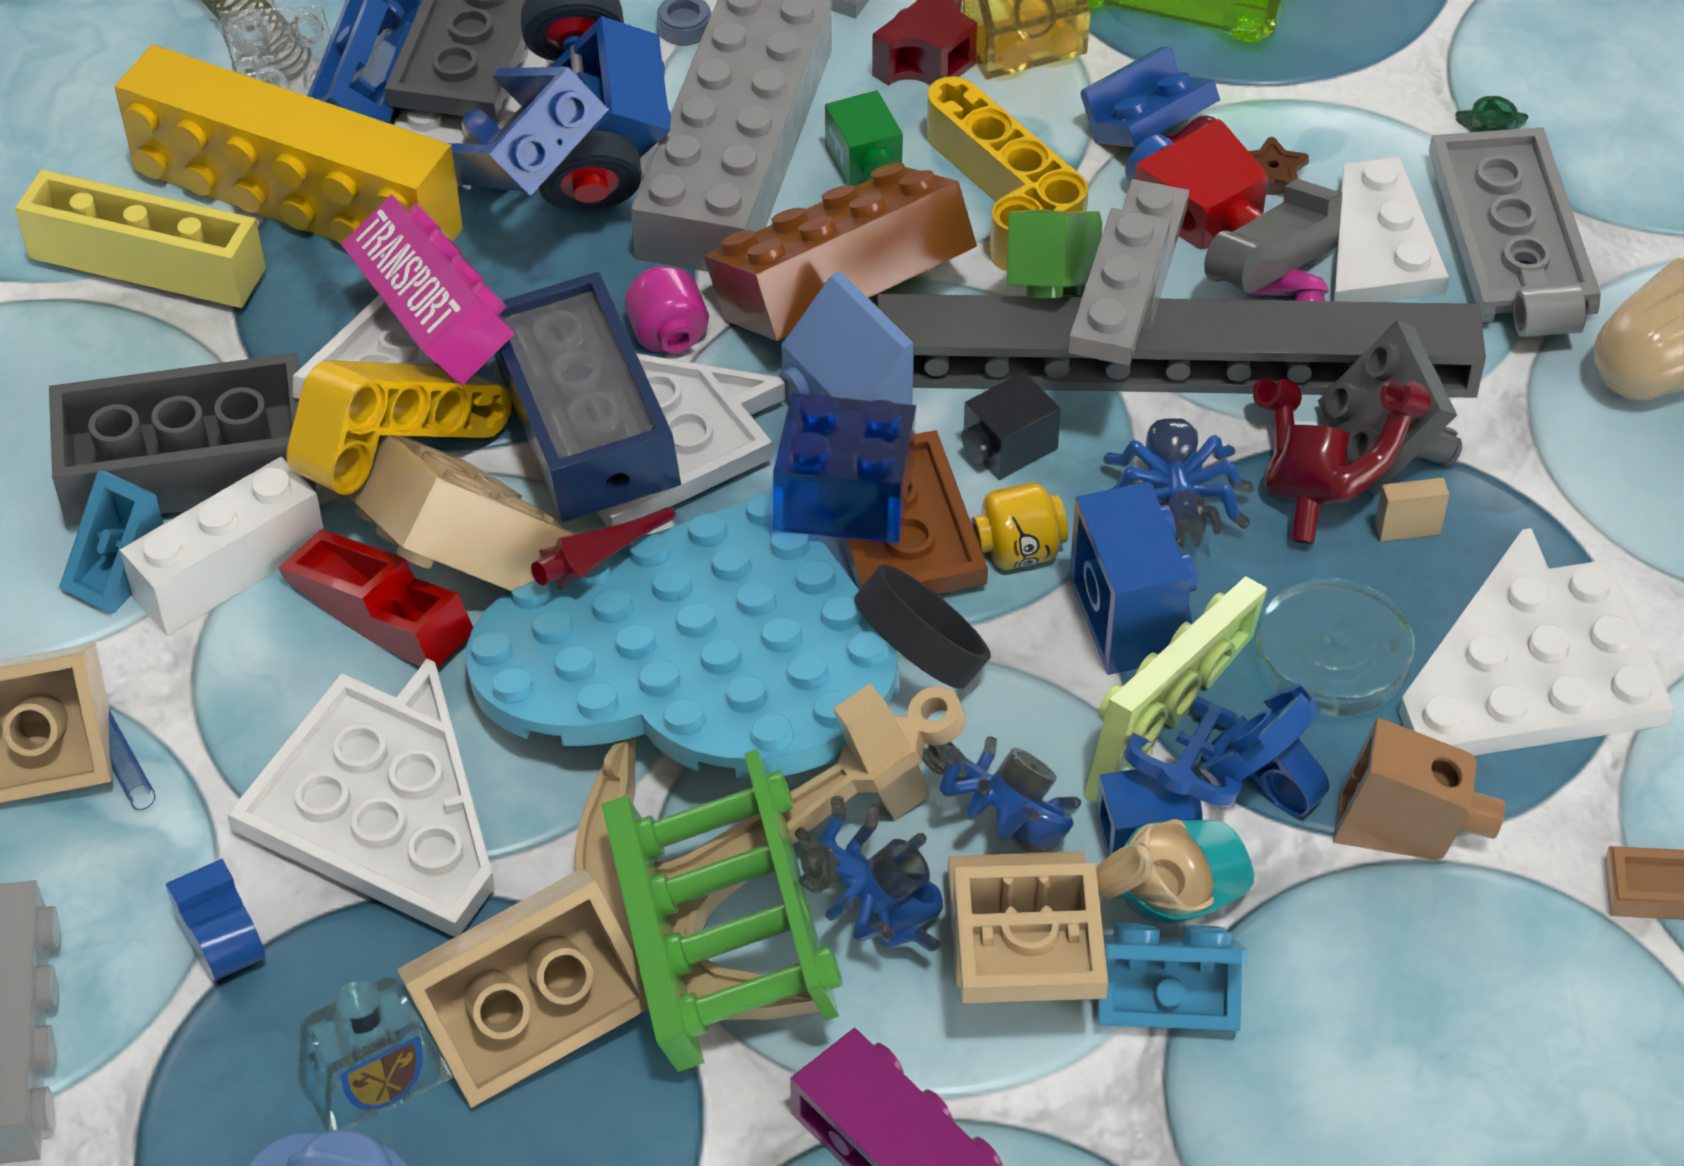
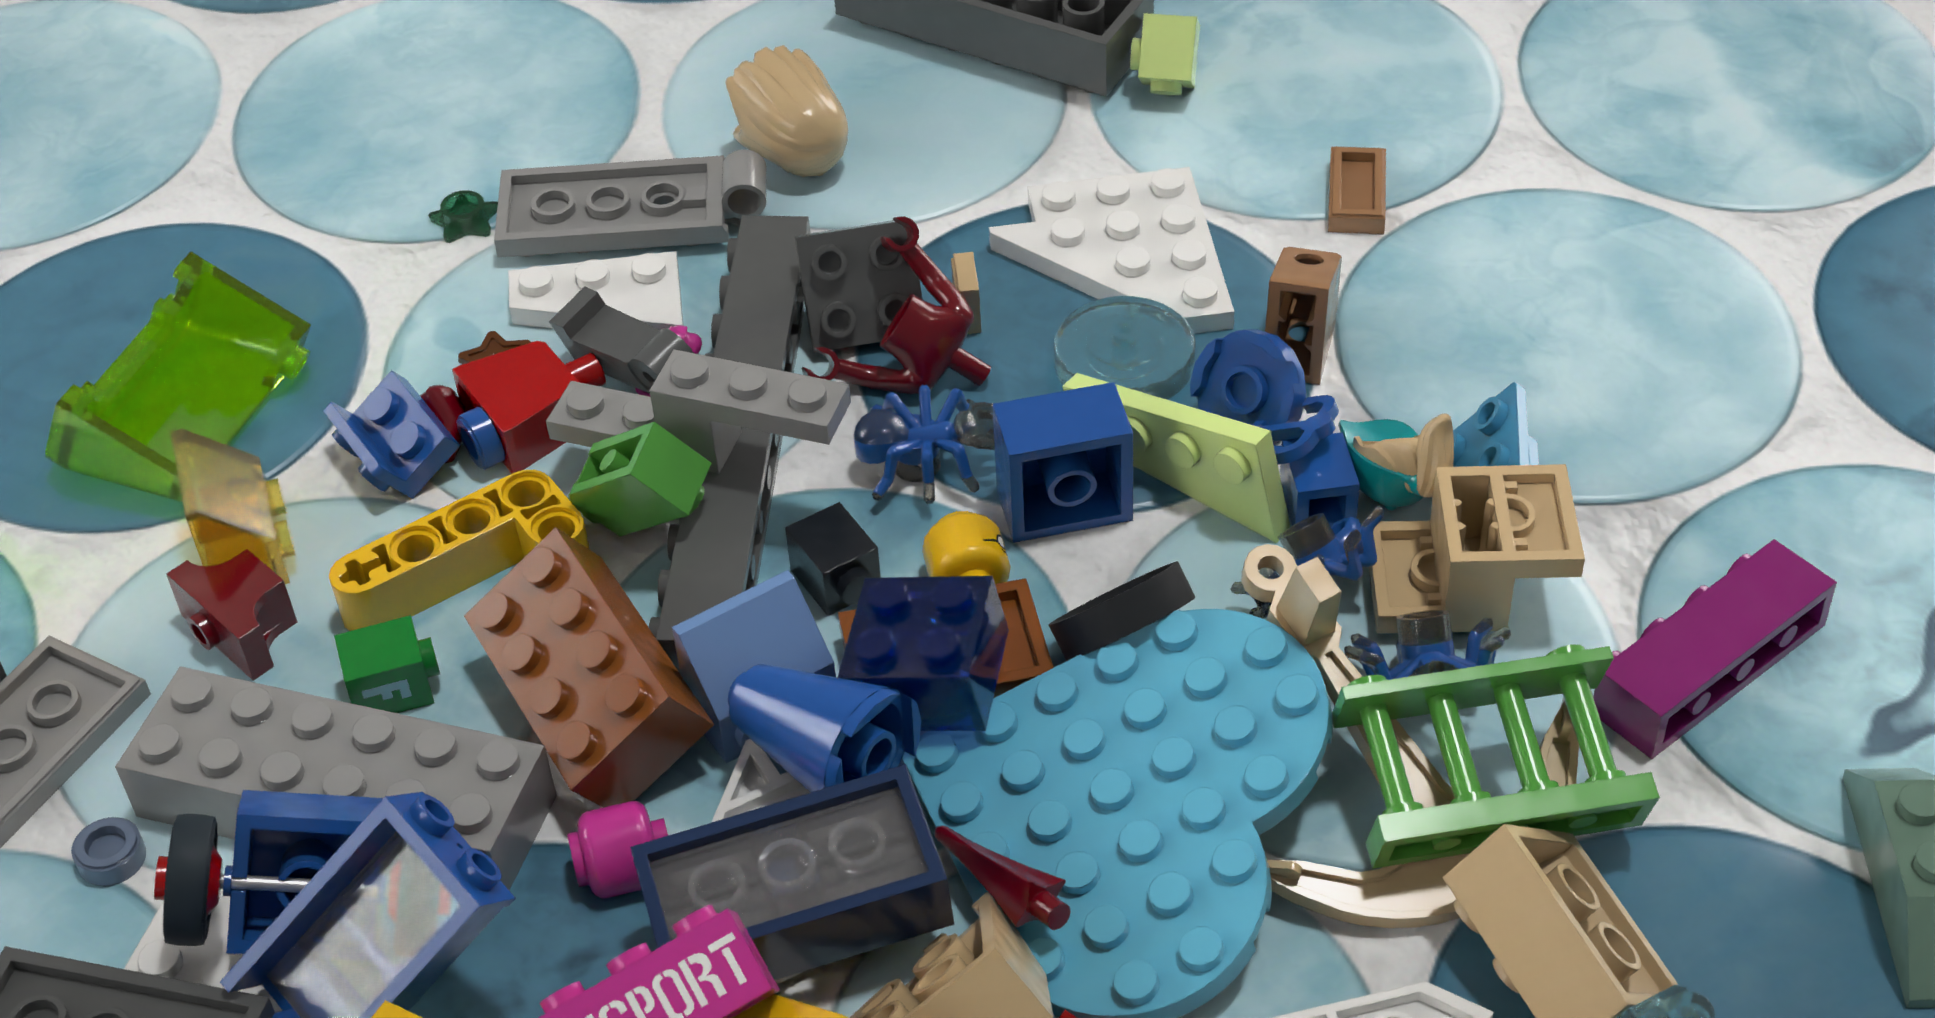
camera: 85 degrees left, 5 degrees down
(737, 403) = (824, 725): none -> blue cone

